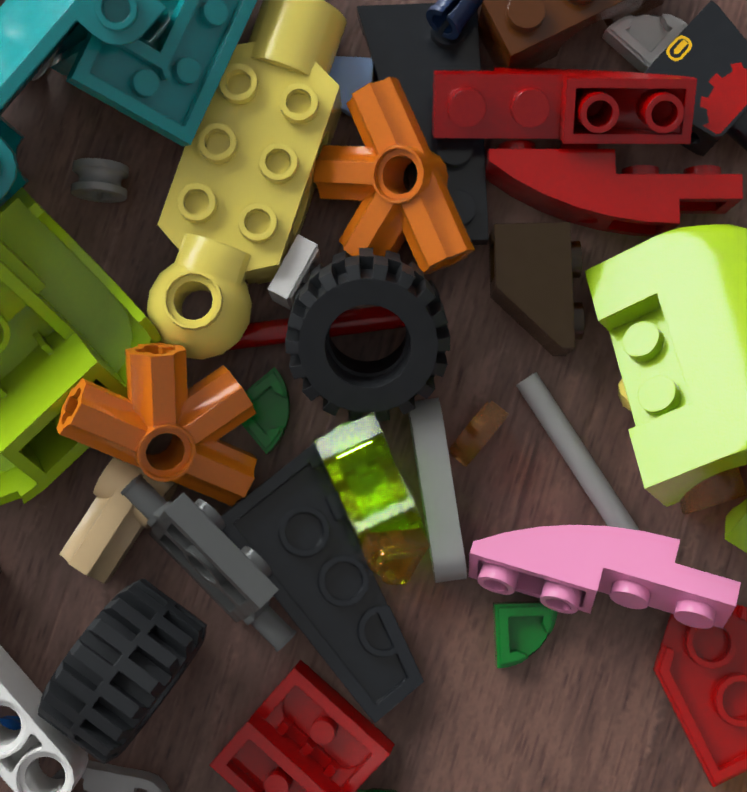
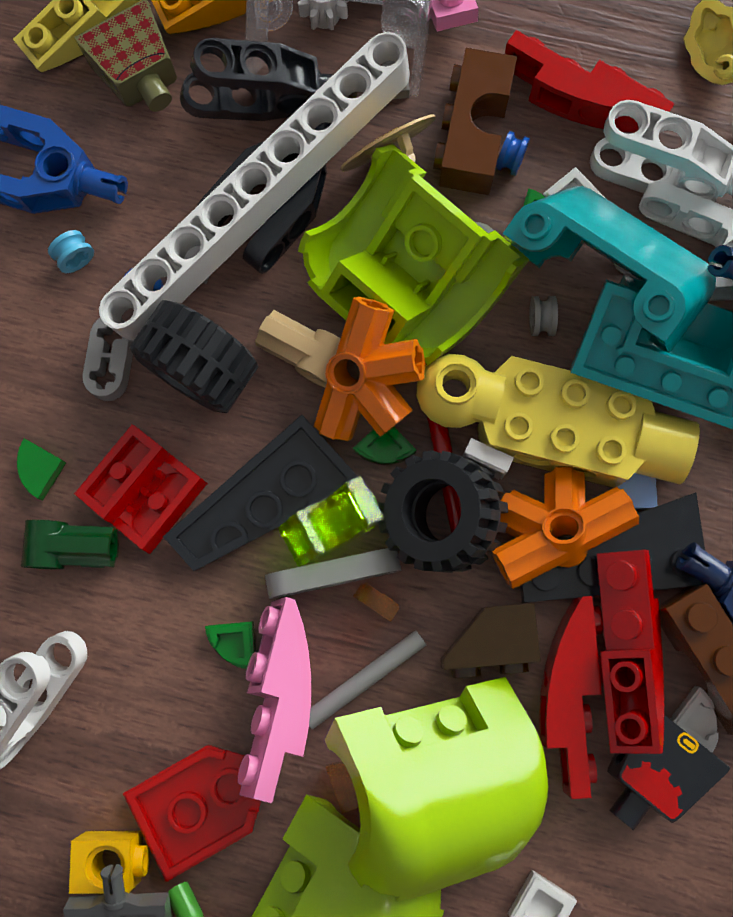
camera: 90 degrees right, 5 degrees down
(229, 575) = (288, 399): dark grey plate -> none
(394, 553) = (284, 543): clear orange tile -> none

